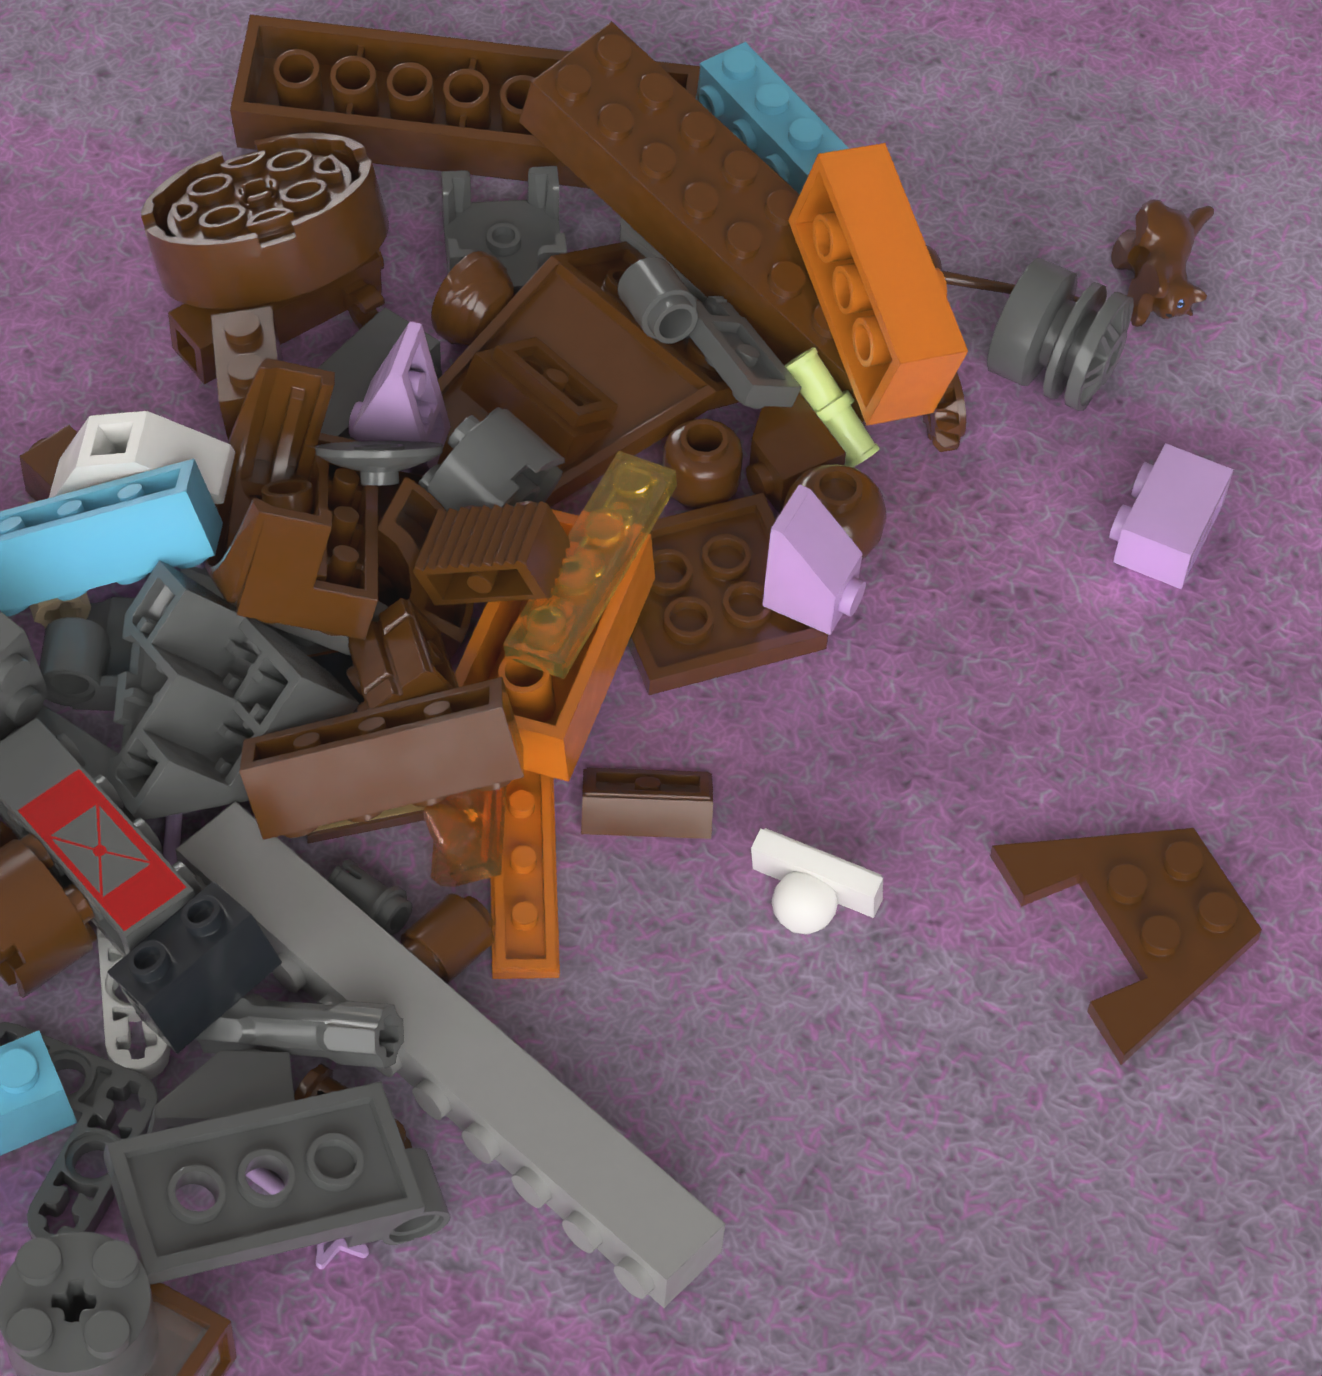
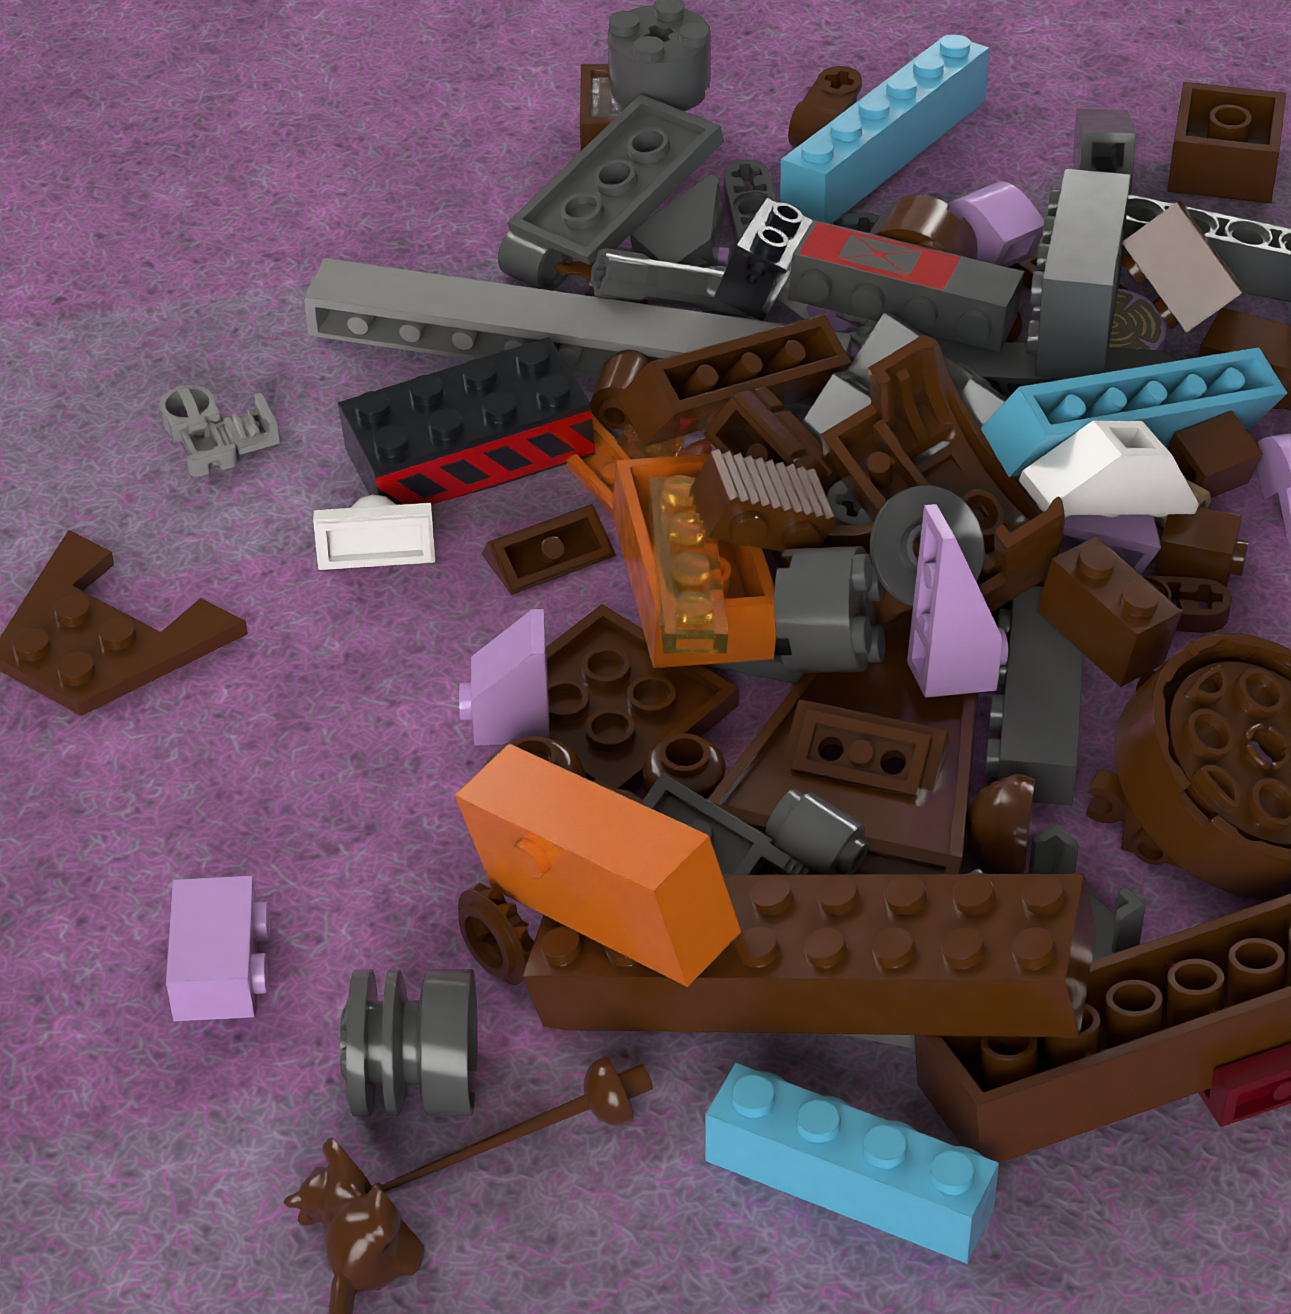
camera: 155 degrees right, 10 degrees down
(648, 954) = (469, 426): none -> black brick
(914, 1125) = (220, 438): none -> light grey piece

